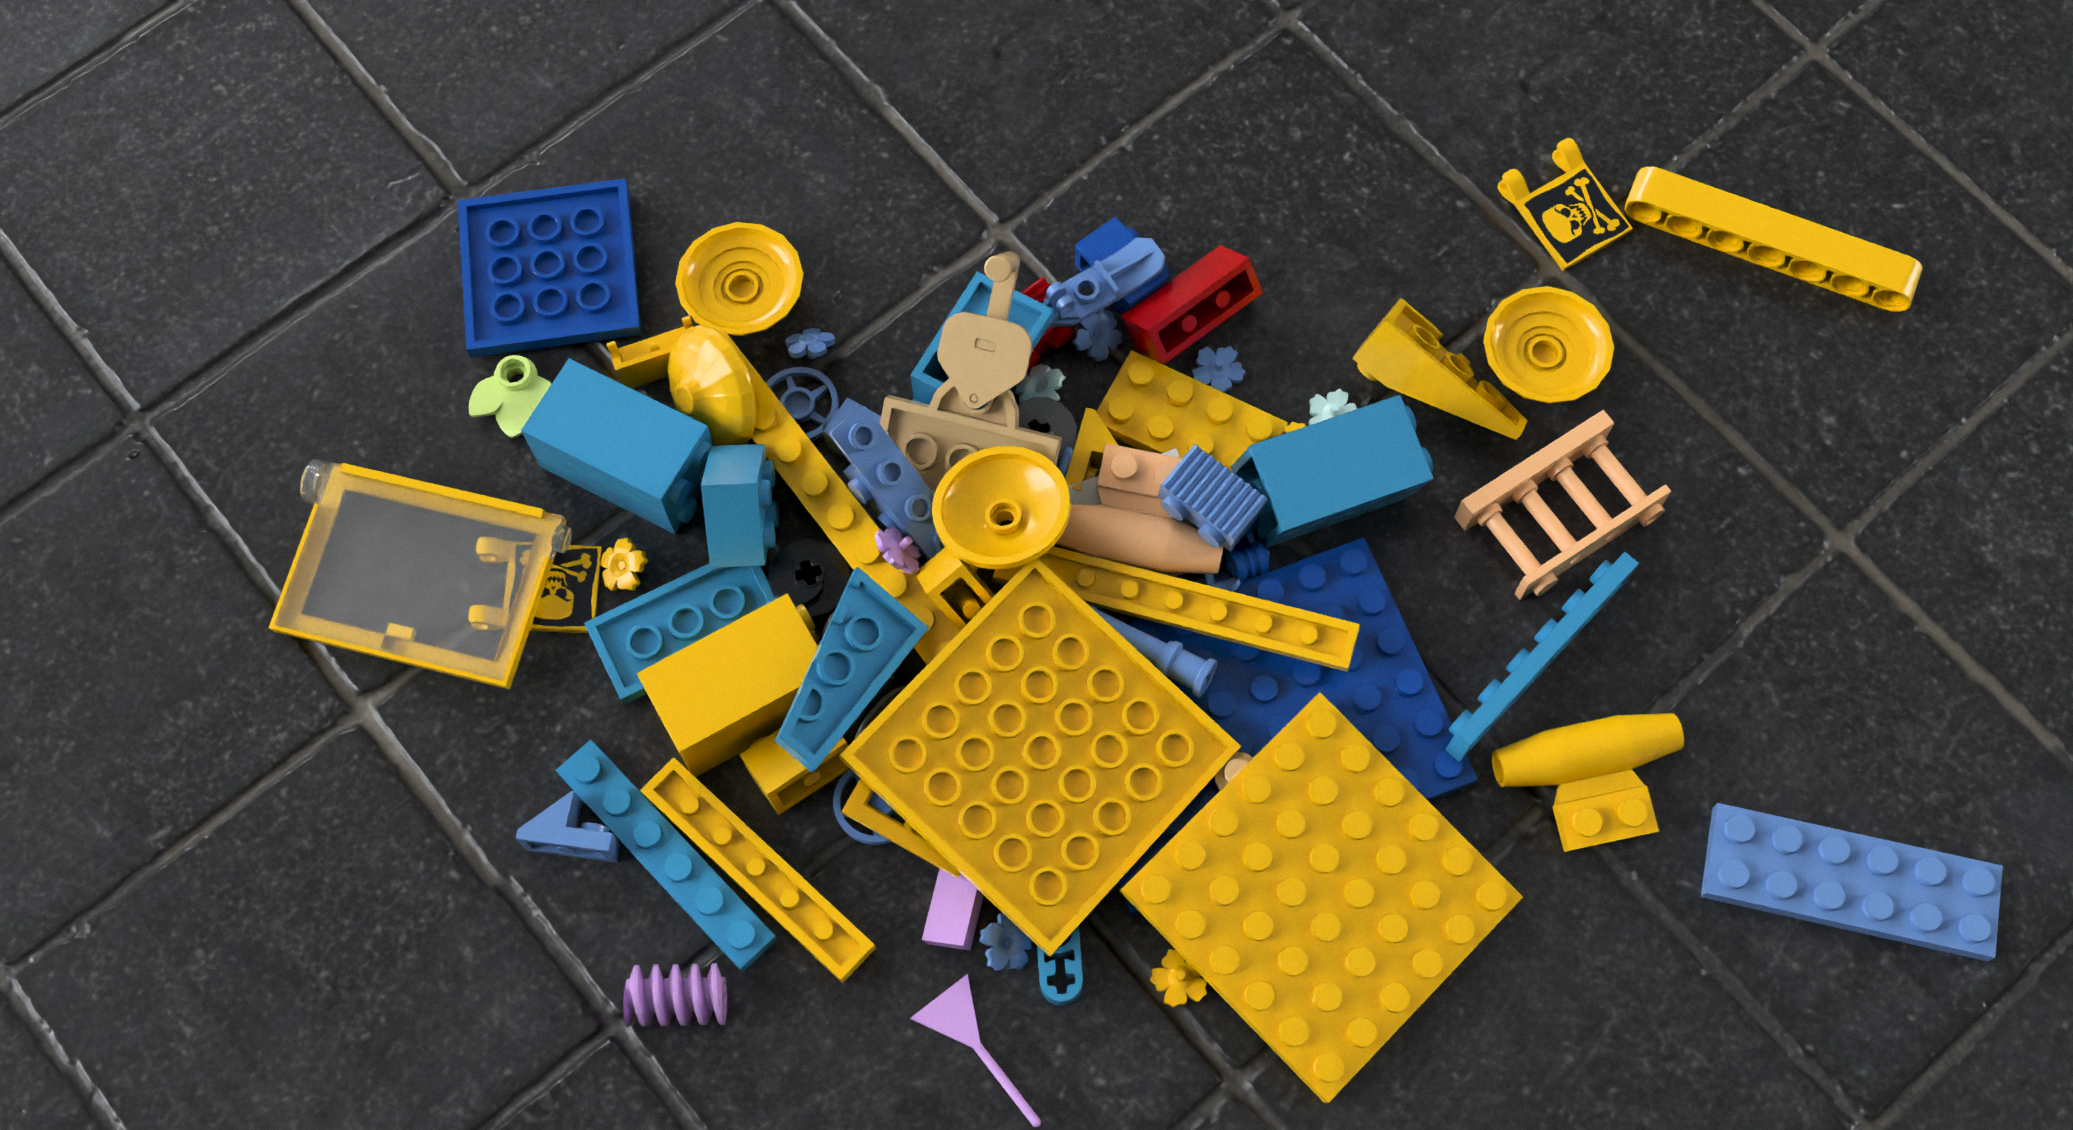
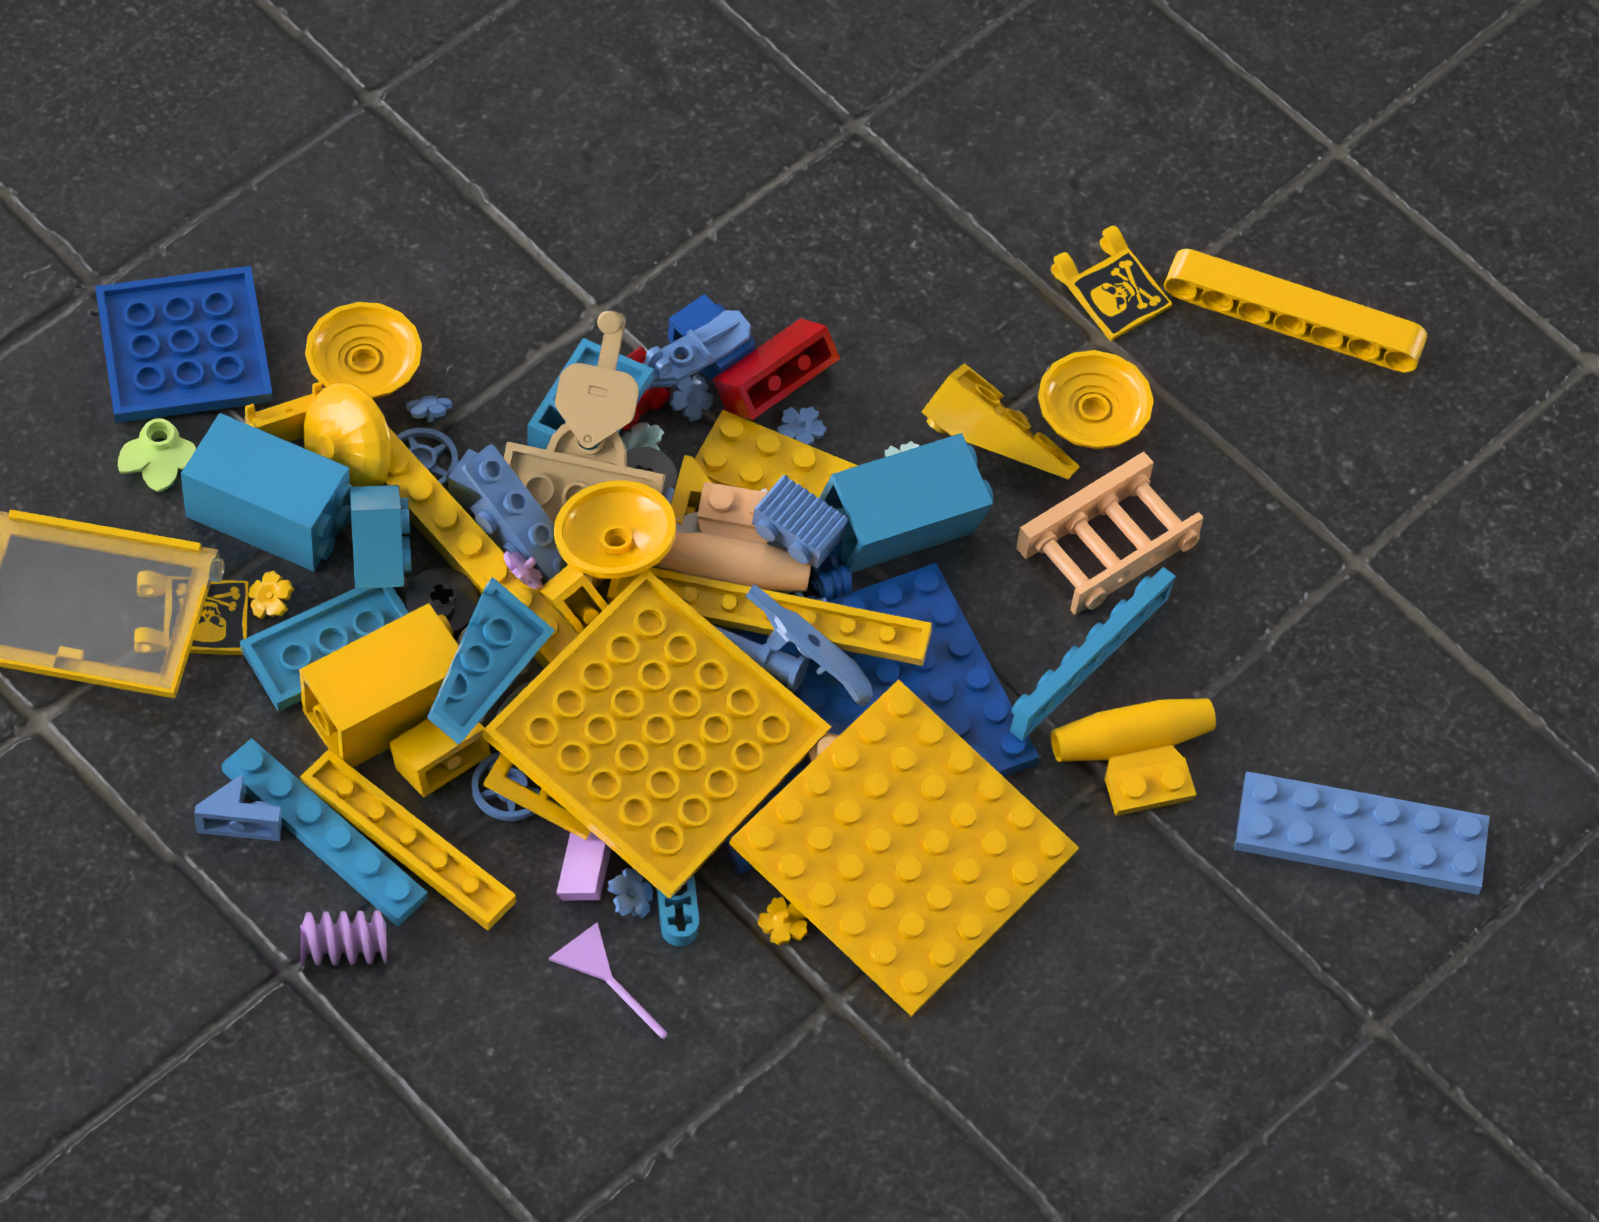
camera: 10 degrees left, 10 degrees down
(1221, 646) = (813, 645): none -> medium blue piece

